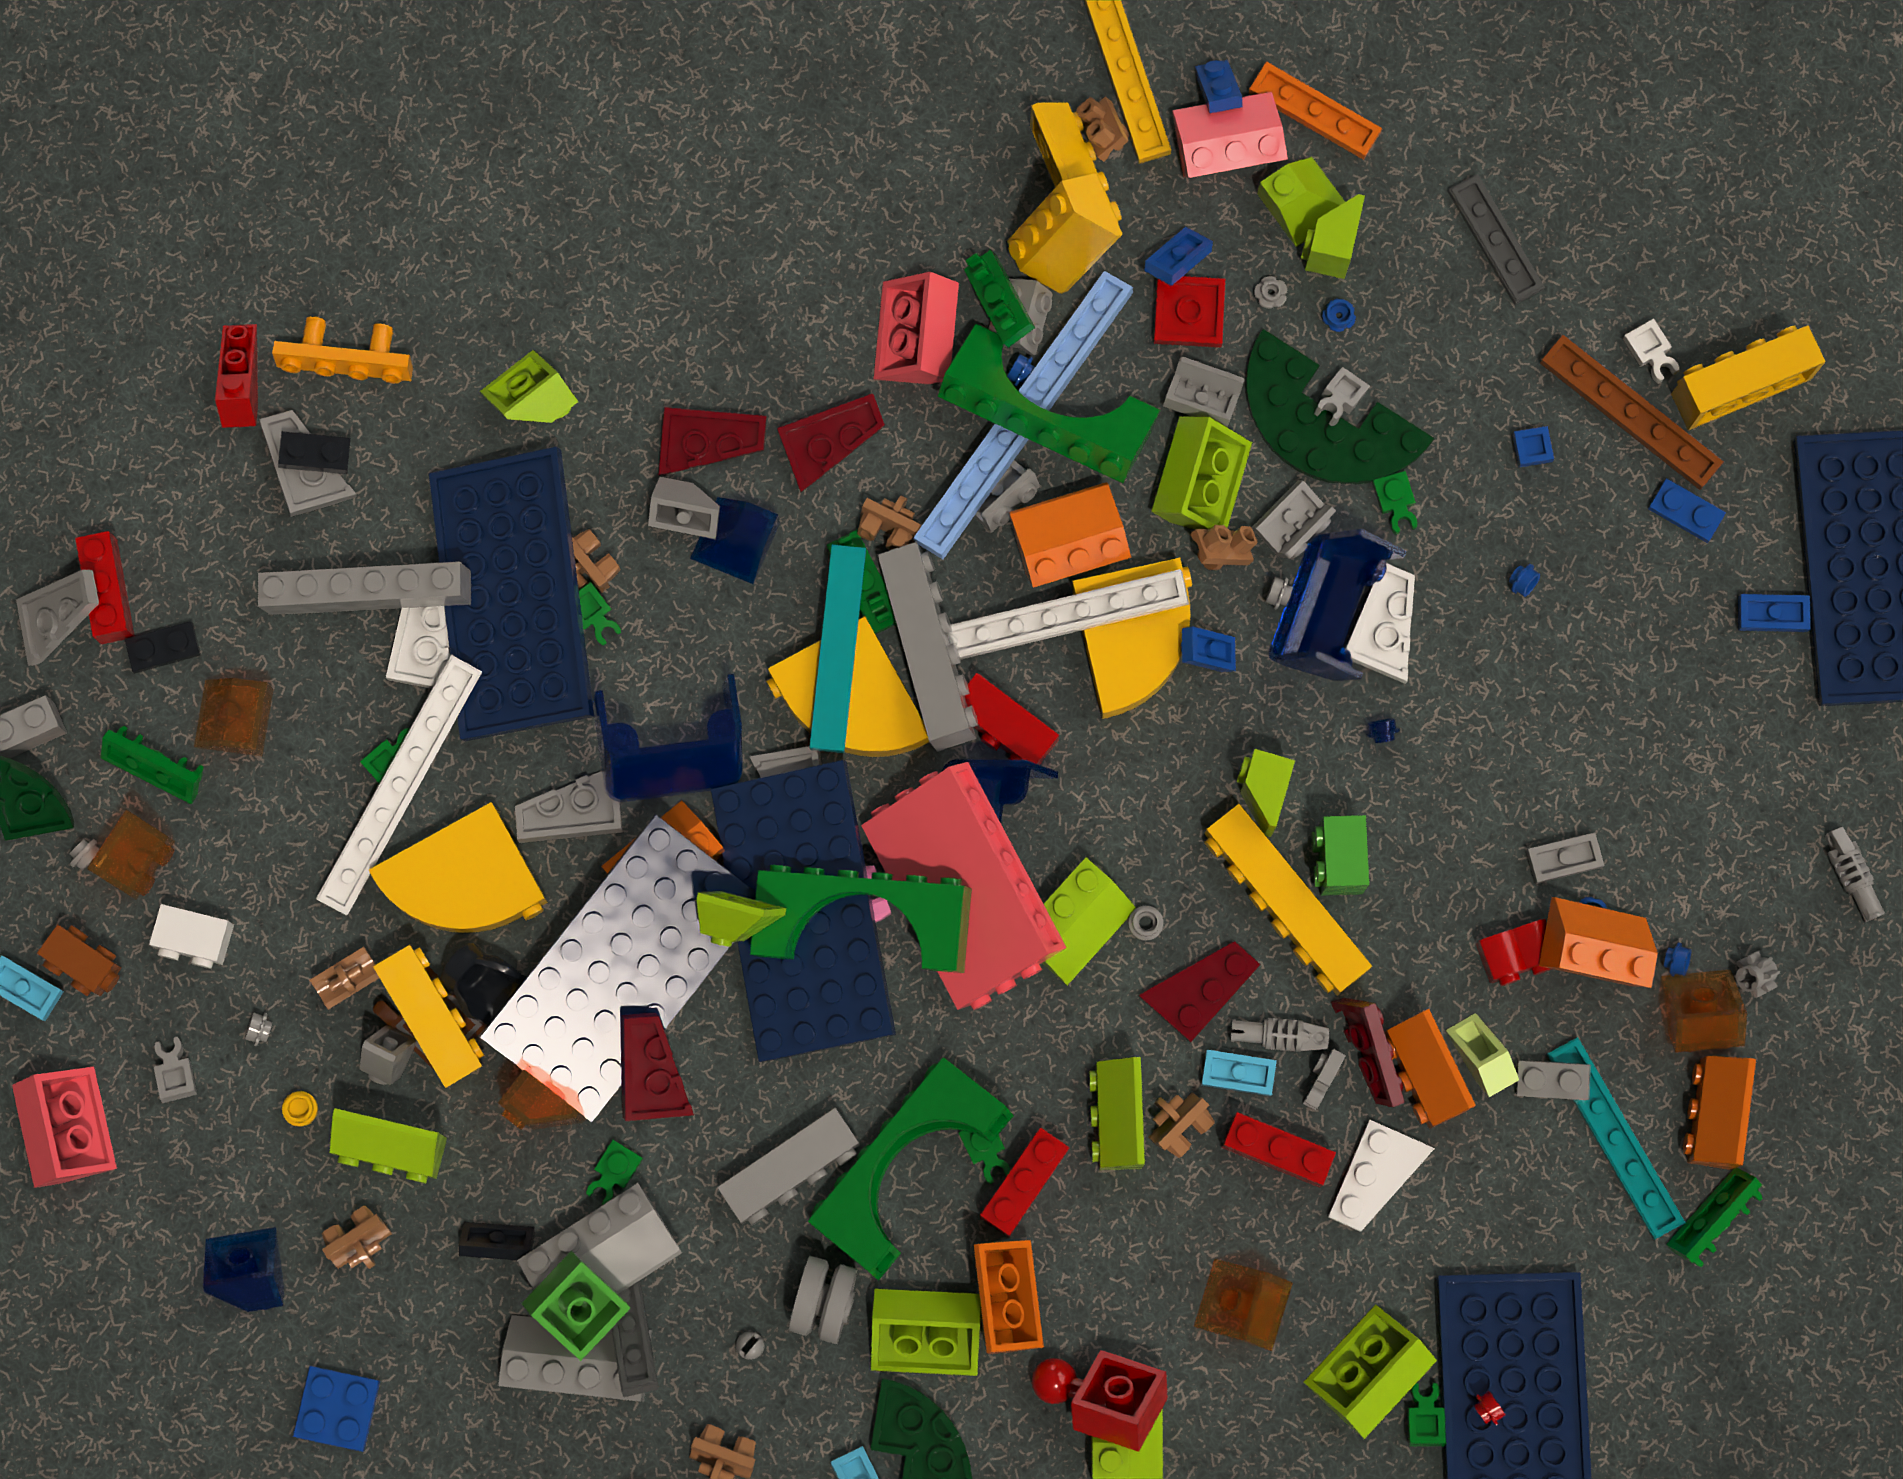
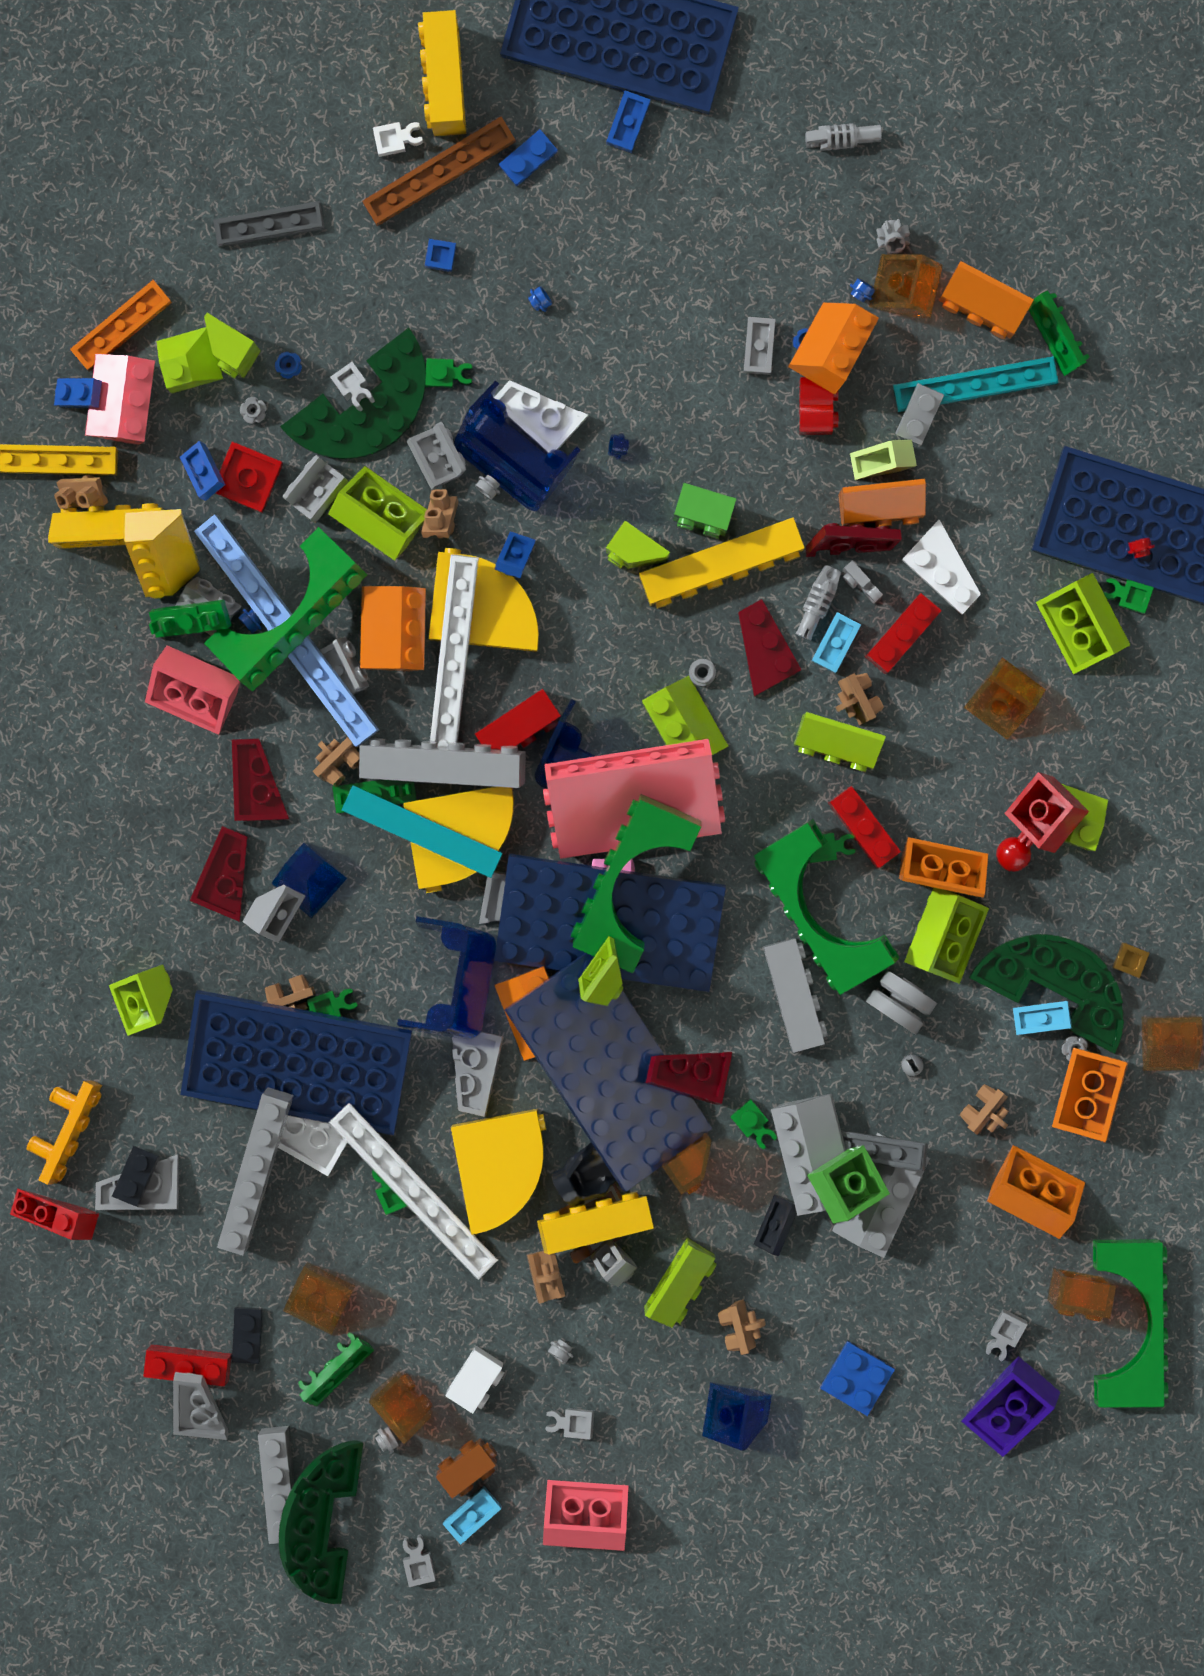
camera: 70 degrees left, 10 degrees up
(300, 1108) = (630, 1338): yellow plate -> none

